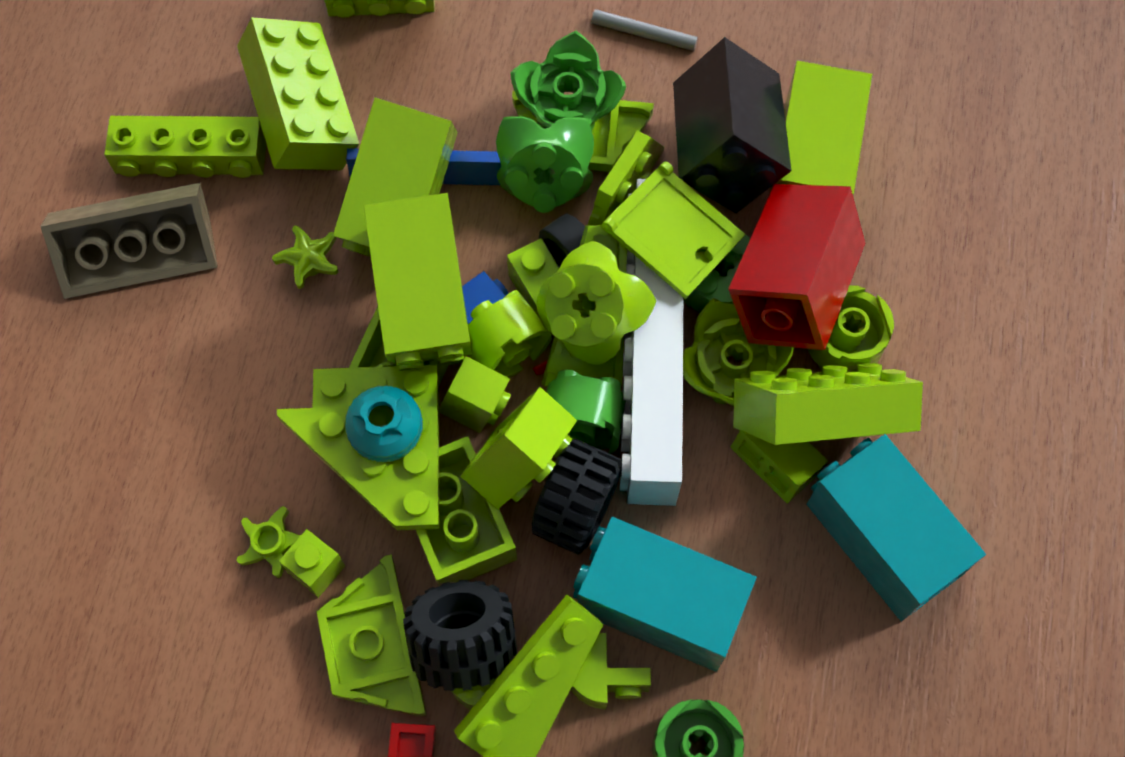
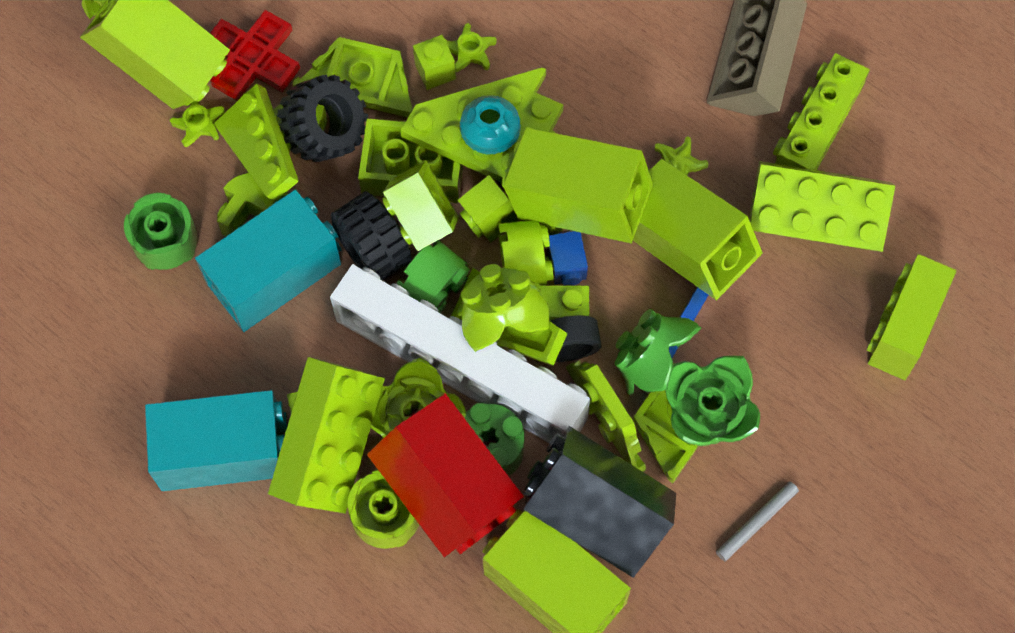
camera: 120 degrees right, 0 degrees up
(667, 225) = (532, 394): lime container -> none

